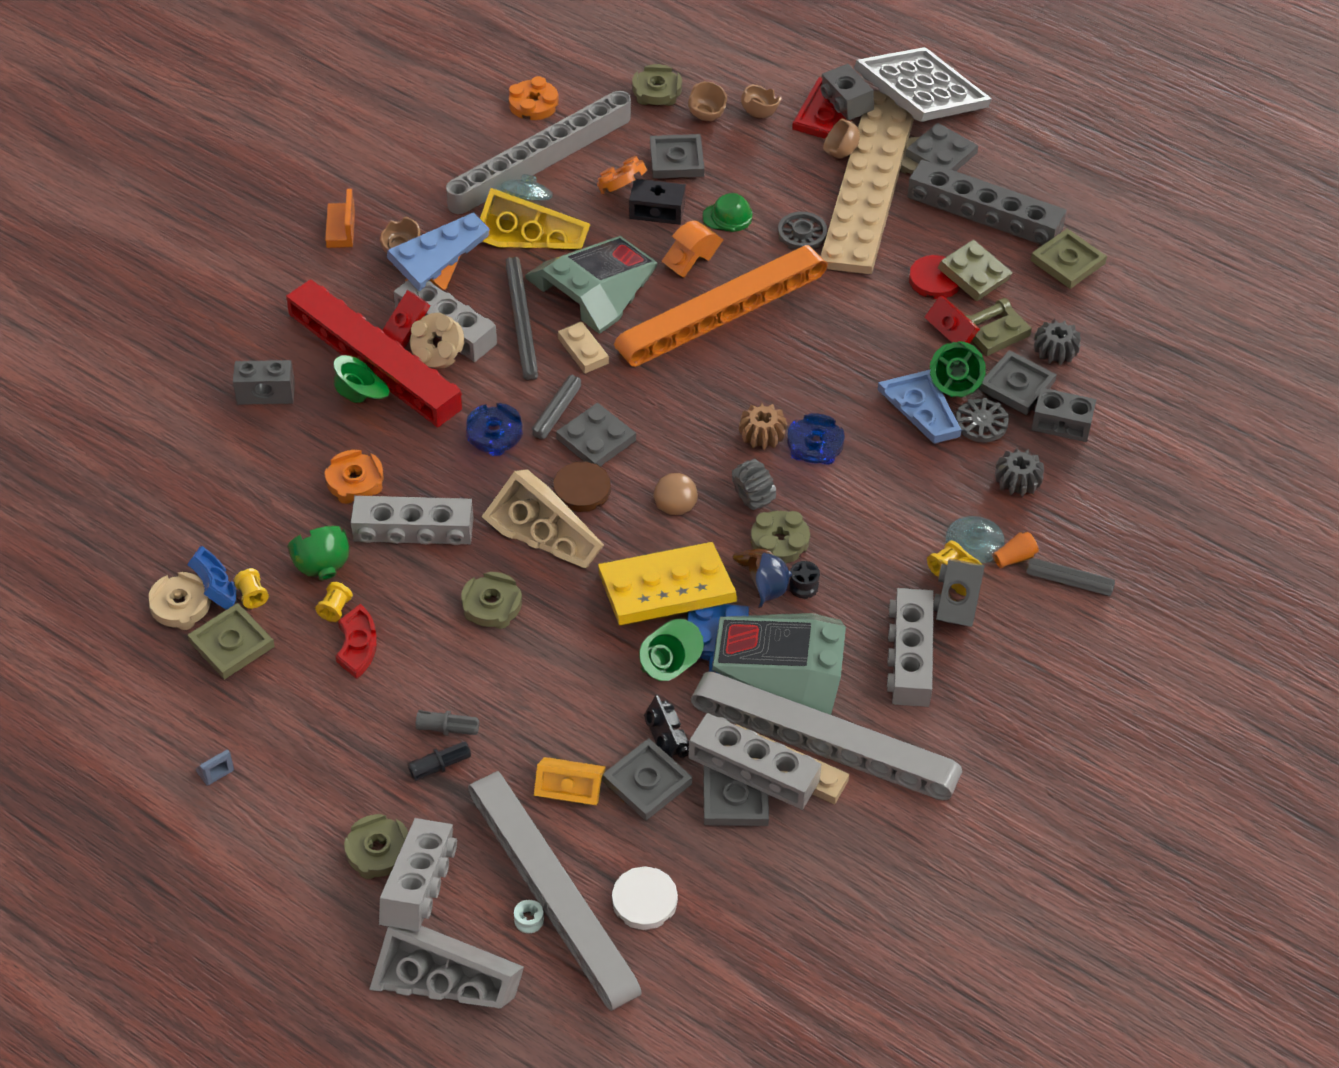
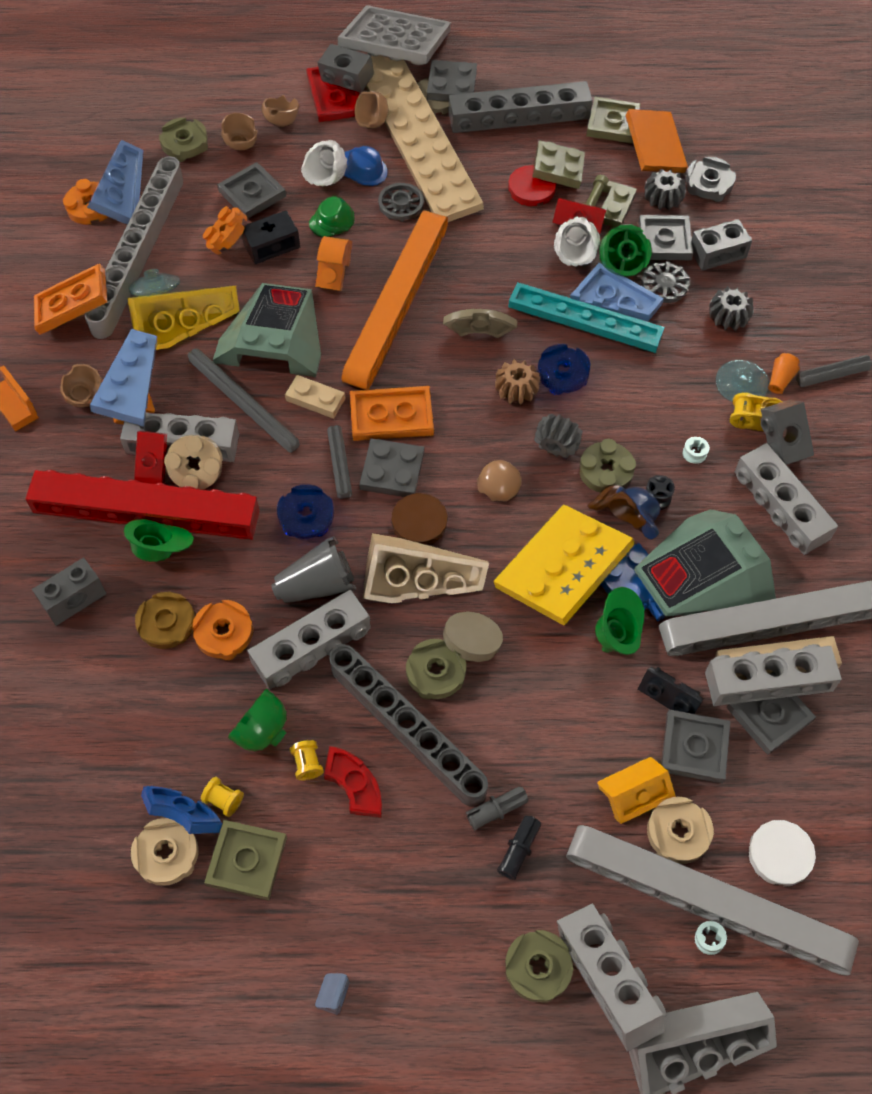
camera: 35 degrees left, 10 degrees up
(317, 444) = (165, 620): none -> pearl gold tile
(431, 623) = (412, 737): none -> dark grey beam
(448, 165) = (70, 299): none -> orange tile
(459, 474) = (315, 575): none -> dark grey cone
(541, 592) = (473, 636): none -> dark tan tile
(568, 93) = (120, 184): none -> medium blue wing
(581, 844) = (690, 816): none -> tan plate
(635, 394) = (391, 413): none -> orange tile
(755, 164) = (324, 163): none -> white hair
(773, 360) = (480, 321): none -> dark tan tile
(795, 185) = (365, 166): none -> blue piece
(871, 560) = (690, 455): none -> light aqua bush
(877, 409) = (586, 317): none -> teal plate
(921, 340) = (577, 242): none -> white hair
(1089, 296) = (656, 141): none -> orange tile
(1112, 367) = (714, 189): none -> plate

